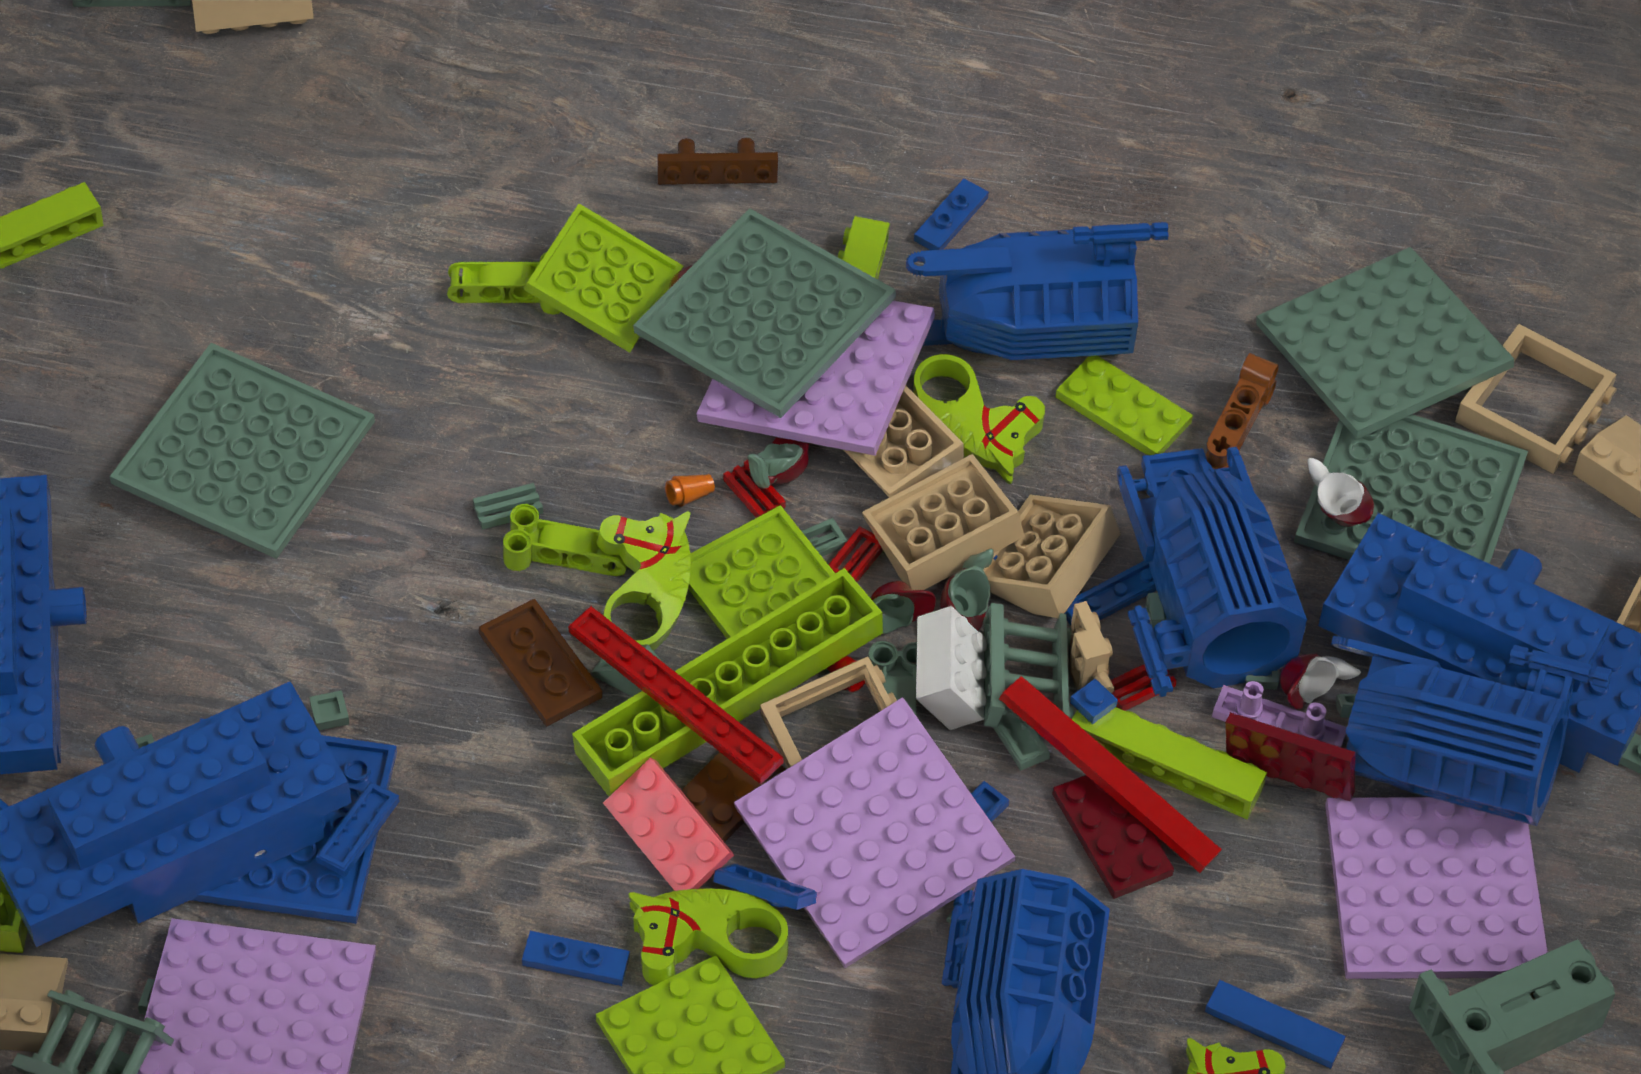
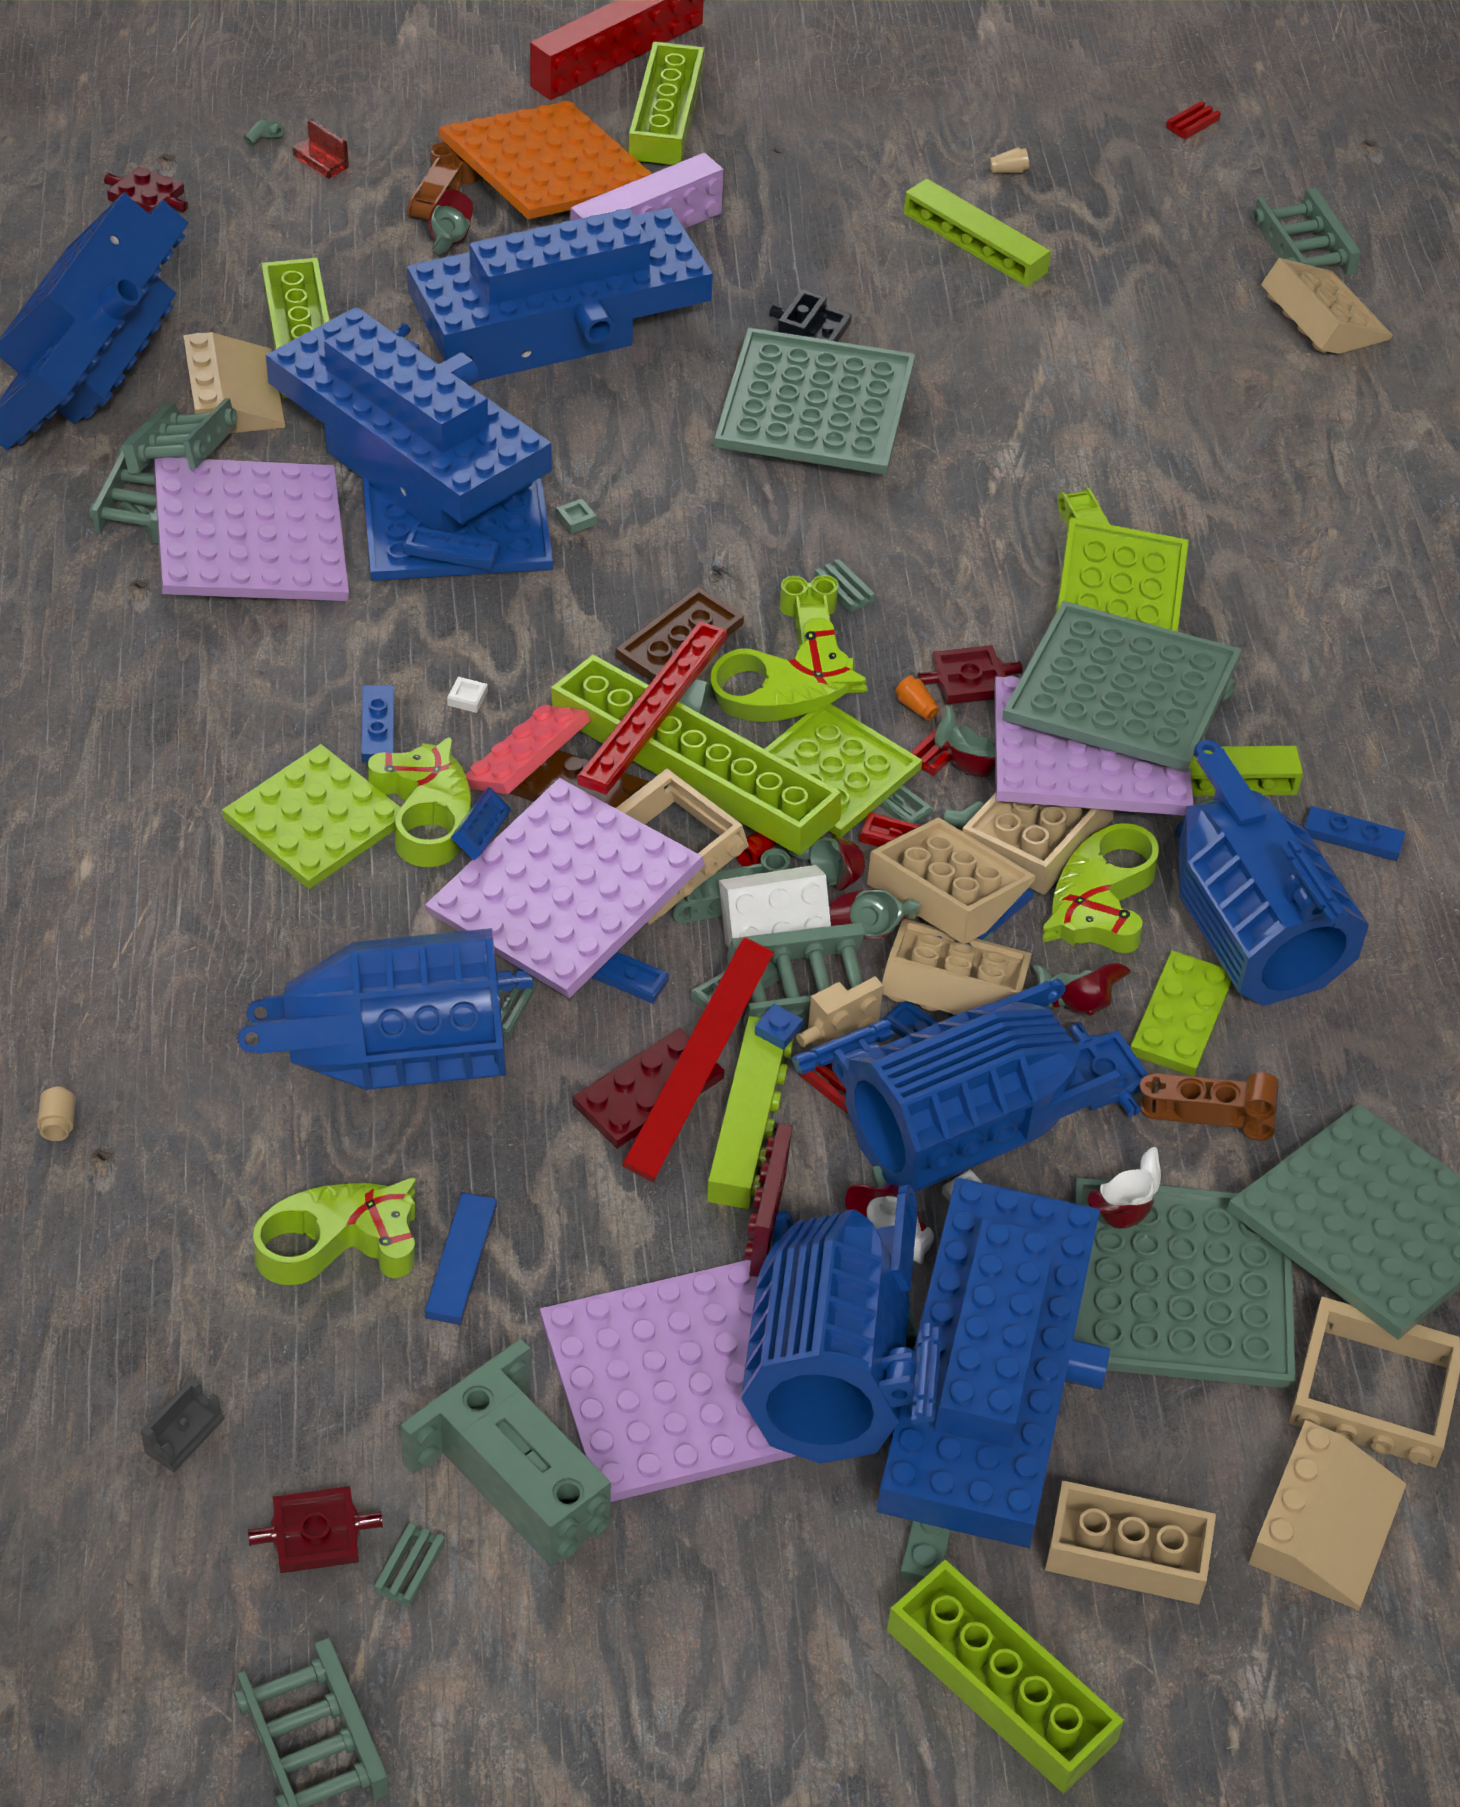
camera: 75 degrees right, 5 degrees down
(101, 424) = (811, 317): none -> black plate
(558, 869) = (467, 694): none -> white tile
(669, 438) = (968, 673): none -> dark red plate
(717, 168) = (1301, 634): reddish brown plate -> none
(854, 494) = (961, 818): none -> sand green arm
(1093, 467) = (1085, 991): none -> dark red hair
(1252, 705) = (832, 1177): lavender plate -> none

